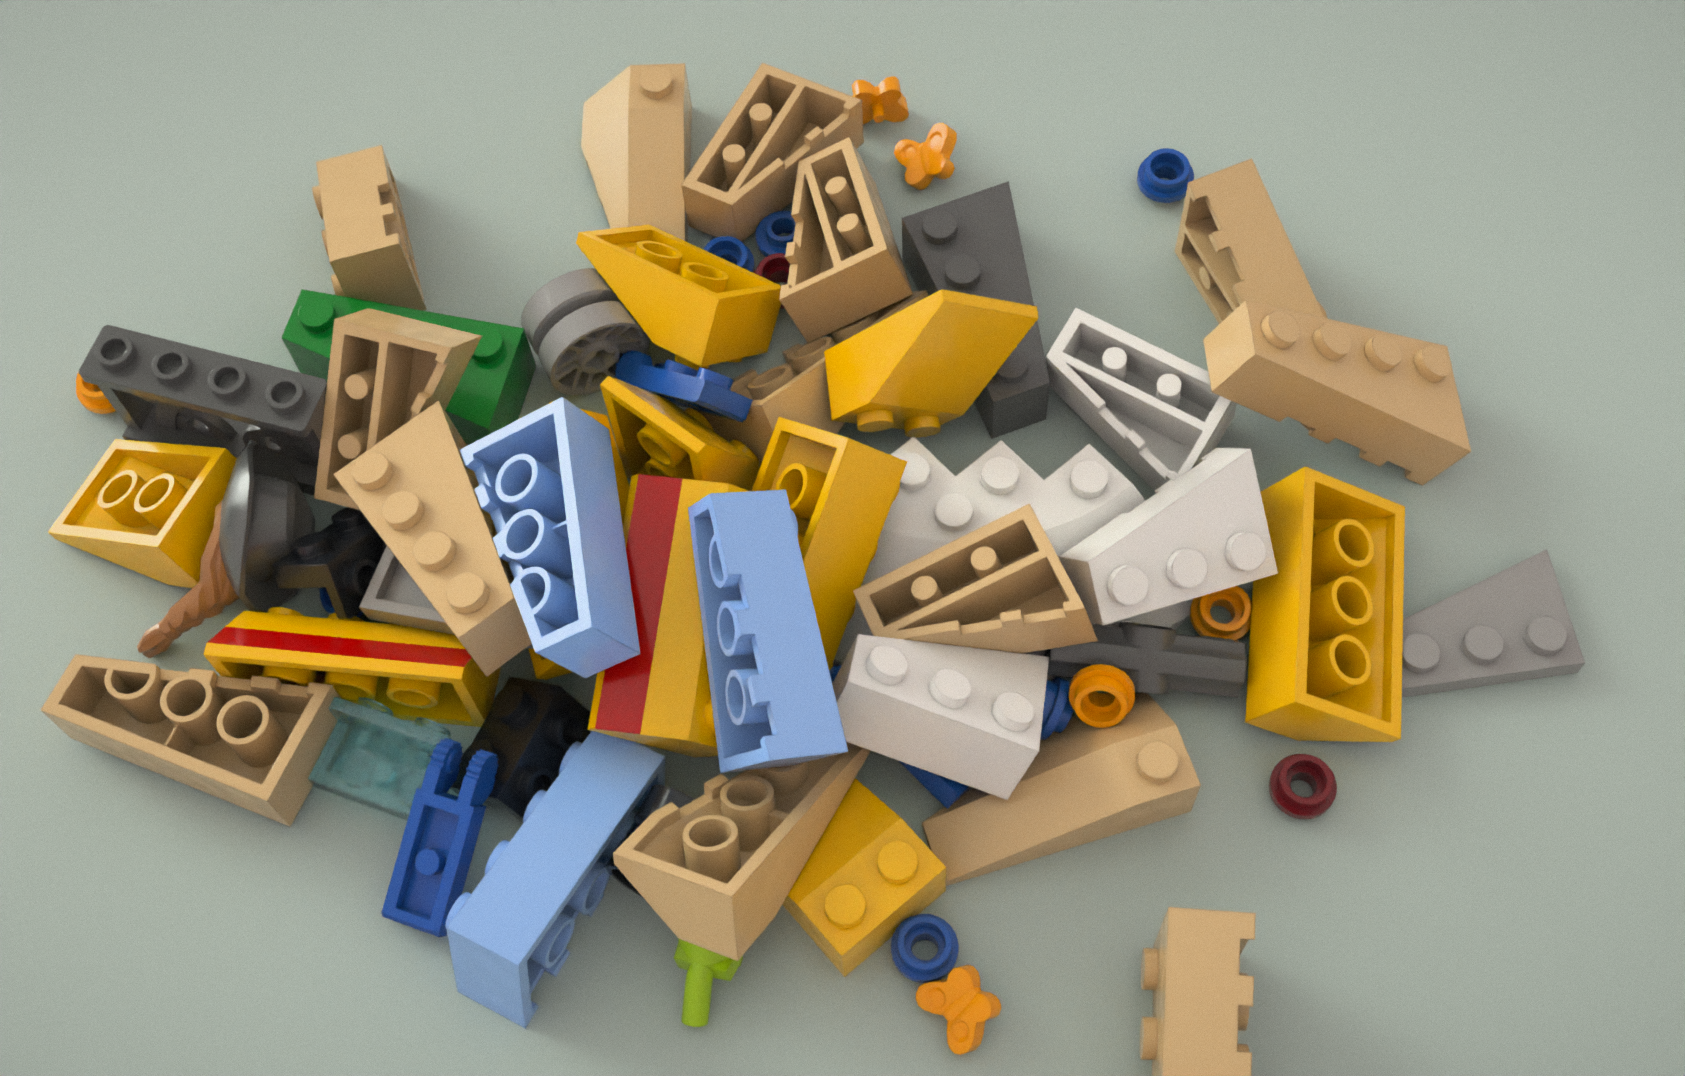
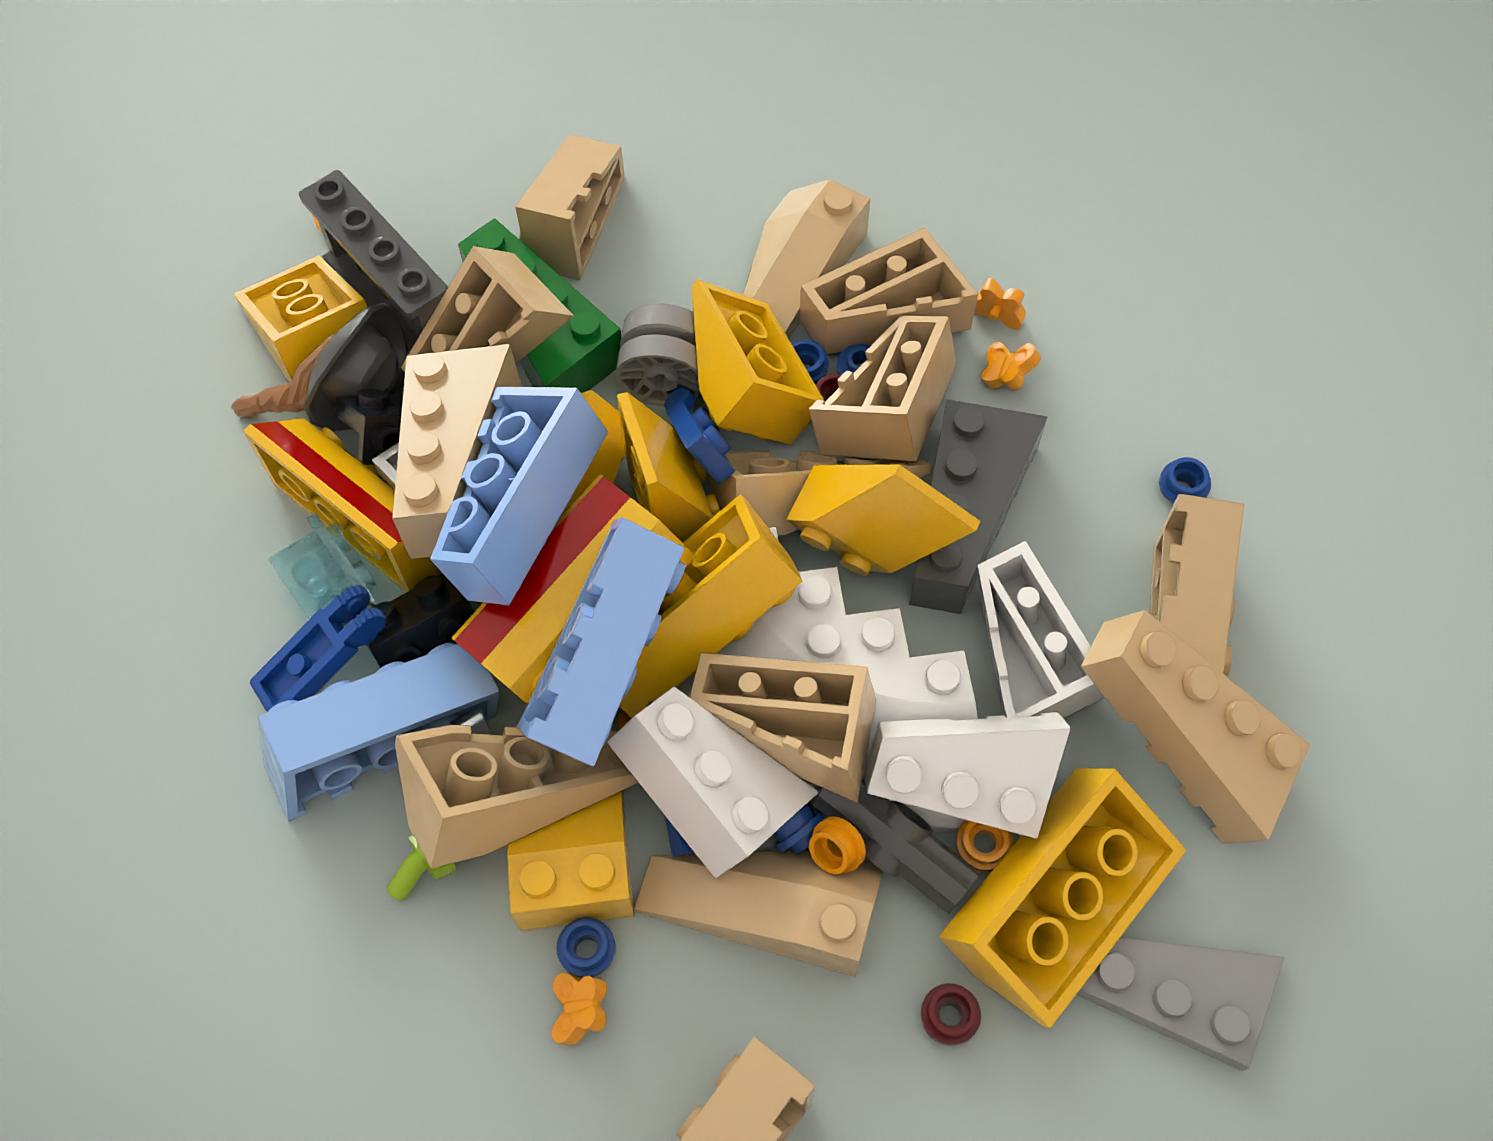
camera: 30 degrees right, 0 degrees up
(209, 731) = (232, 492): tan wedge -> none

